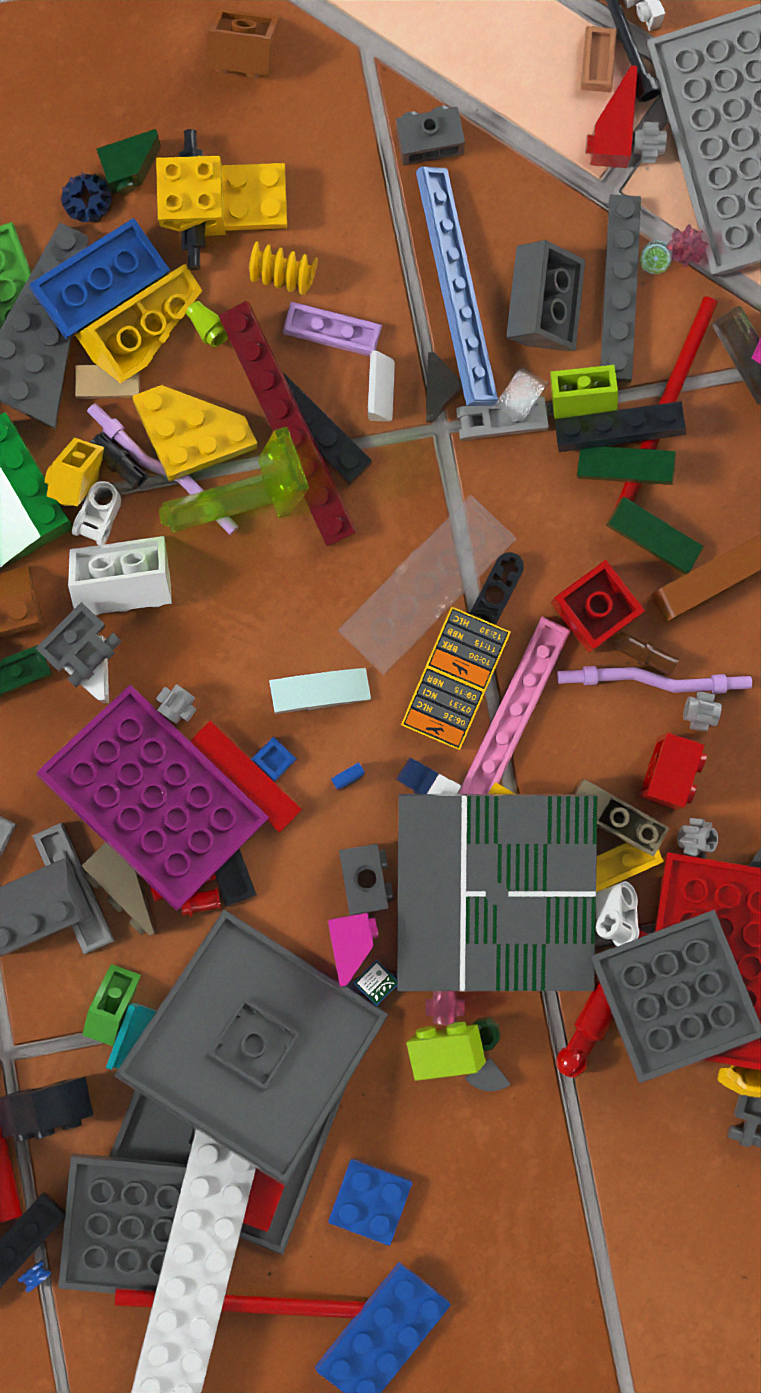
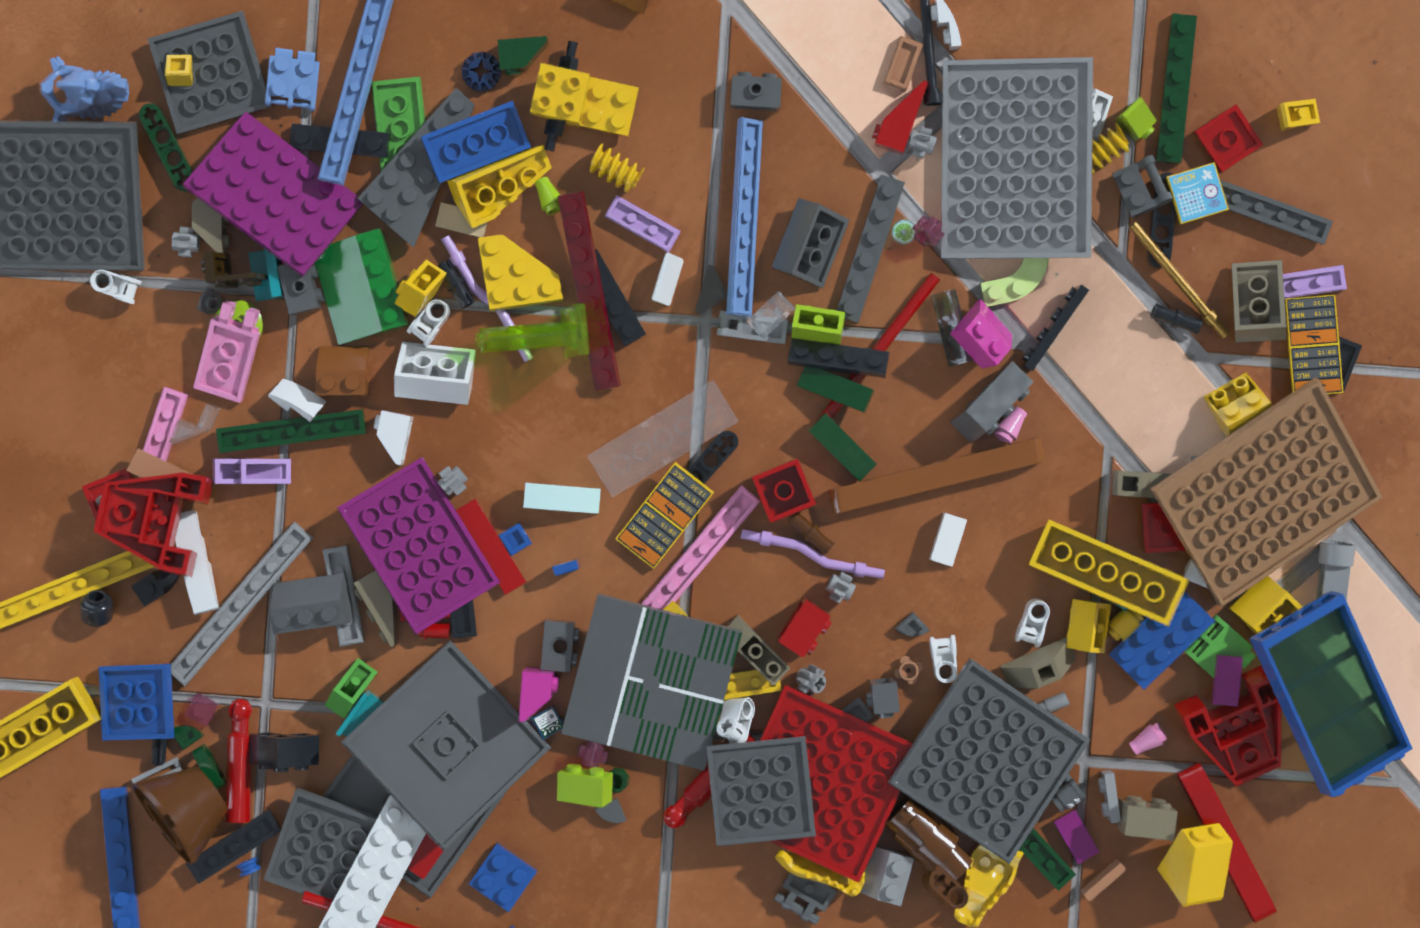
camera: 15 degrees right, 5 degrees up
(71, 638) = (386, 414): dark grey plate -> none
(425, 780) = (623, 586): dark blue leg -> none

